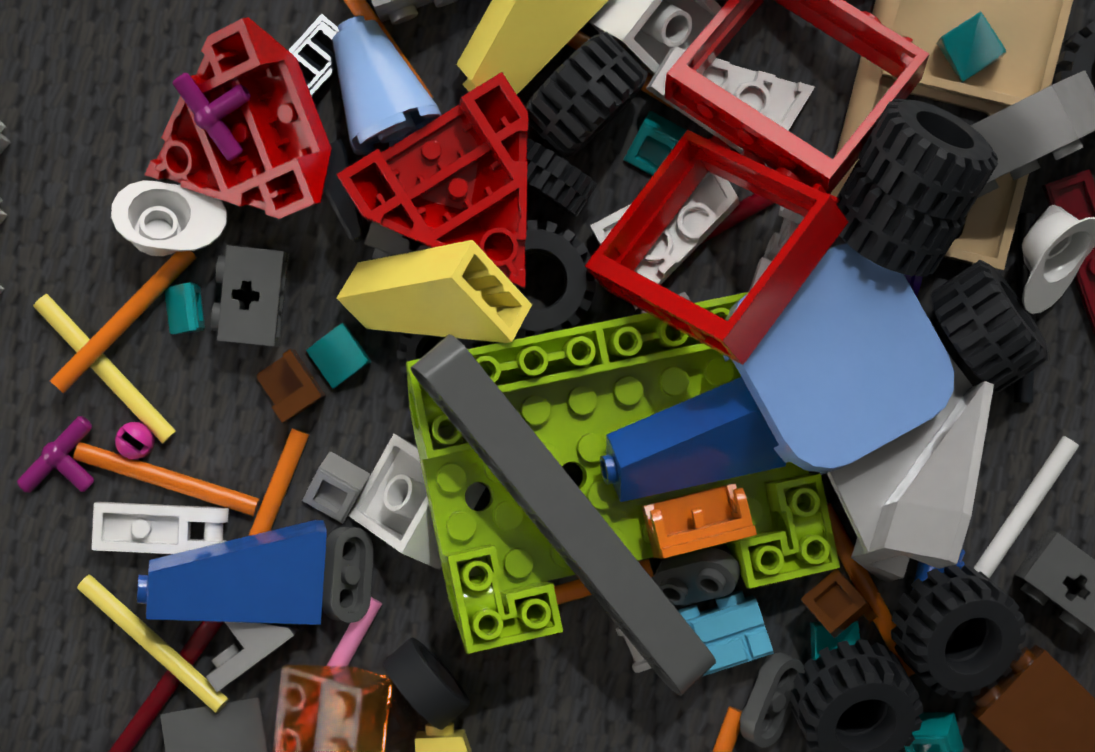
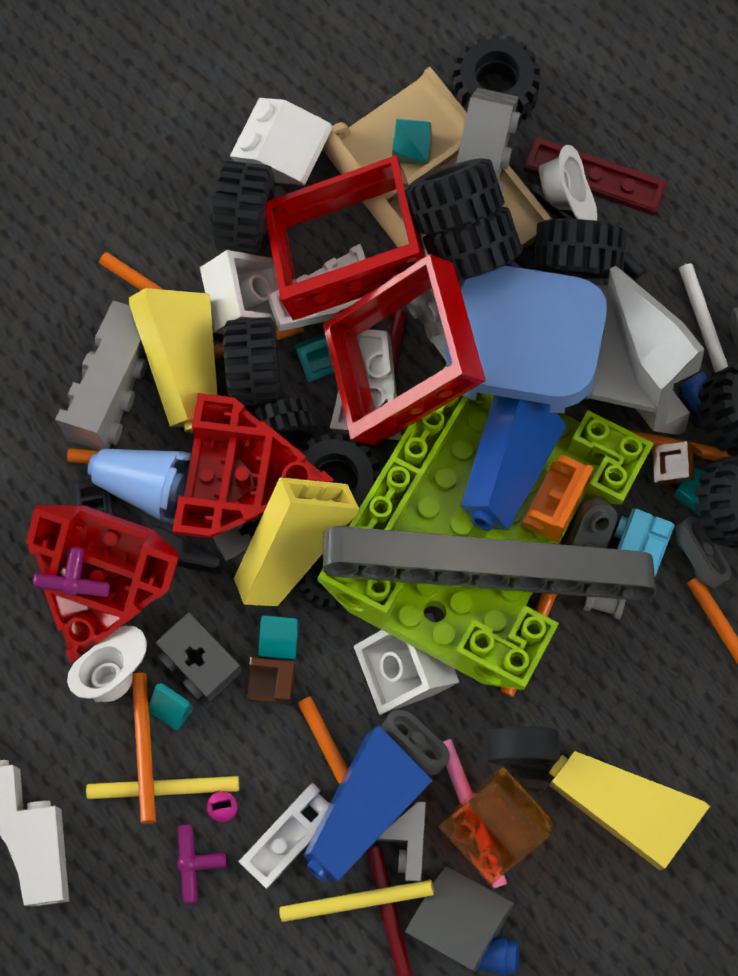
camera: 50 degrees left, 15 degrees down
(166, 478) = (262, 807): orange bar -> none
(336, 487) = (356, 708): light grey slope -> none

